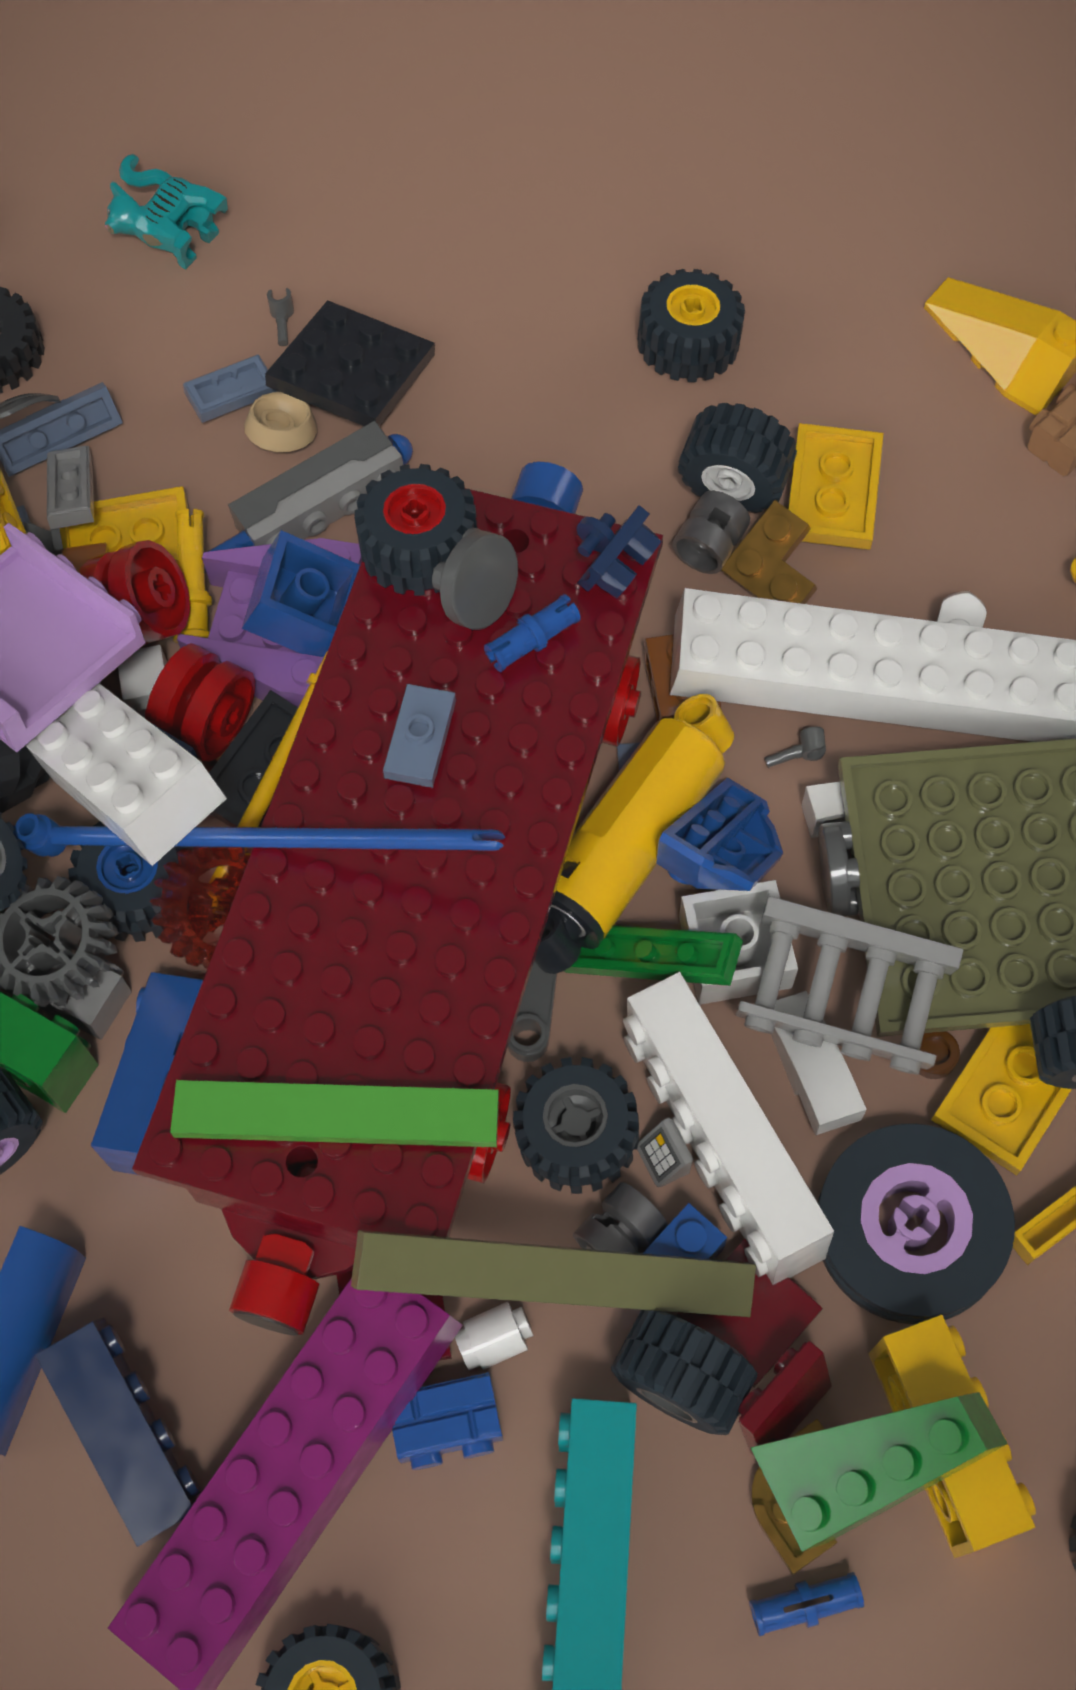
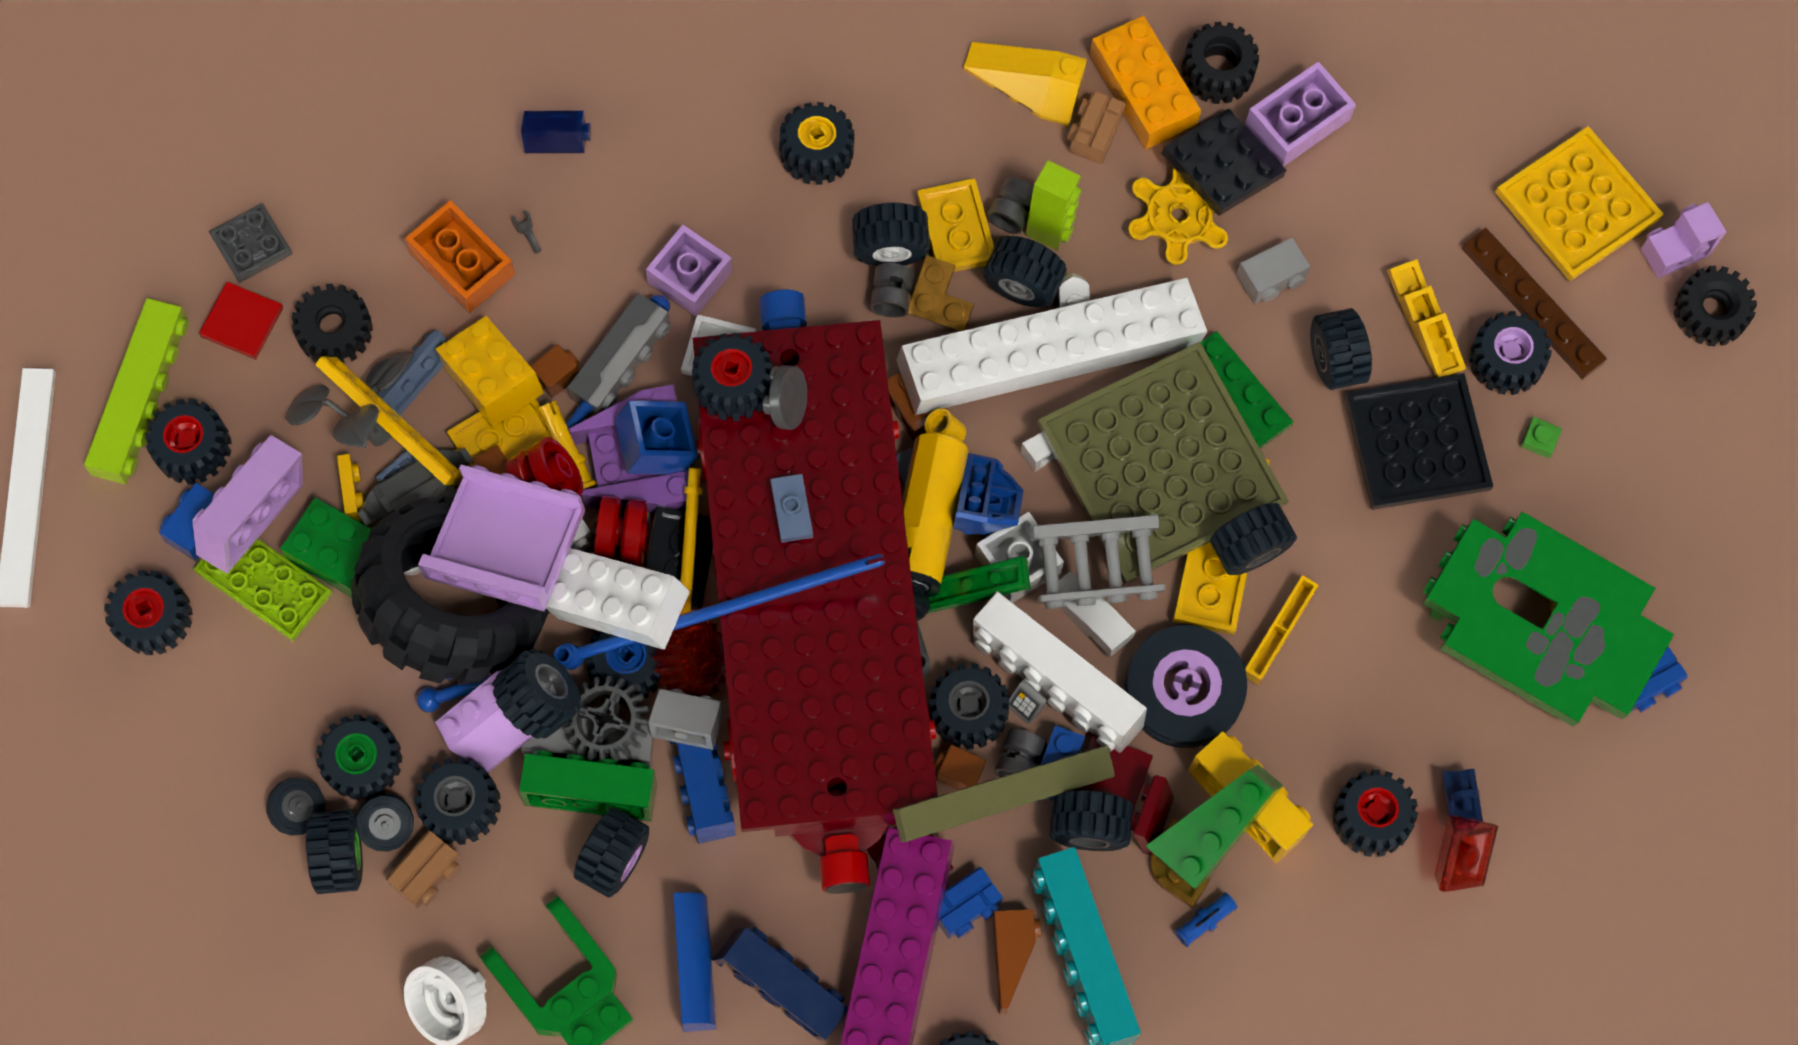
camera: 30 degrees left, 5 degrees up
(70, 487) = (451, 413): light grey tile -> none
(141, 452) = (489, 371): none -> yellow brick
(155, 980) = (686, 718): none -> light grey brick
(167, 213) = (413, 175): teal animal -> none
(178, 310) = (460, 256): none -> orange brick
(226, 480) = (556, 370): none -> dark orange brick
(227, 388) = (520, 300): sand blue plate -> none
(280, 423) = (568, 313): tan hat -> none
(335, 1113) = (846, 752): bright green tile -> none
(350, 364) = (596, 253): black plate -> none
(366, 210) = (555, 131): none -> clear blue brick
(455, 418) = (689, 270): none -> lavender brick
(487, 1522) = (1014, 940): none -> dark orange slope
(493, 1336) = (973, 846): white brick -> none
(524, 1210) = (959, 768): none -> dark orange brick
(532, 632) = (831, 417): blue pin -> none
(631, 537) = (854, 343): dark blue hips -> none
(811, 748) = (1012, 413): dark grey hand -> none
(838, 871) = (1063, 493): dark grey tile -> none
(902, 562) = (1024, 271): none -> black wheel
(918, 485) = (1012, 209): none -> flat silver wheel
(947, 1052) = (1165, 576): reddish brown tile -> none
(975, 483) = (1054, 206): none -> lime brick

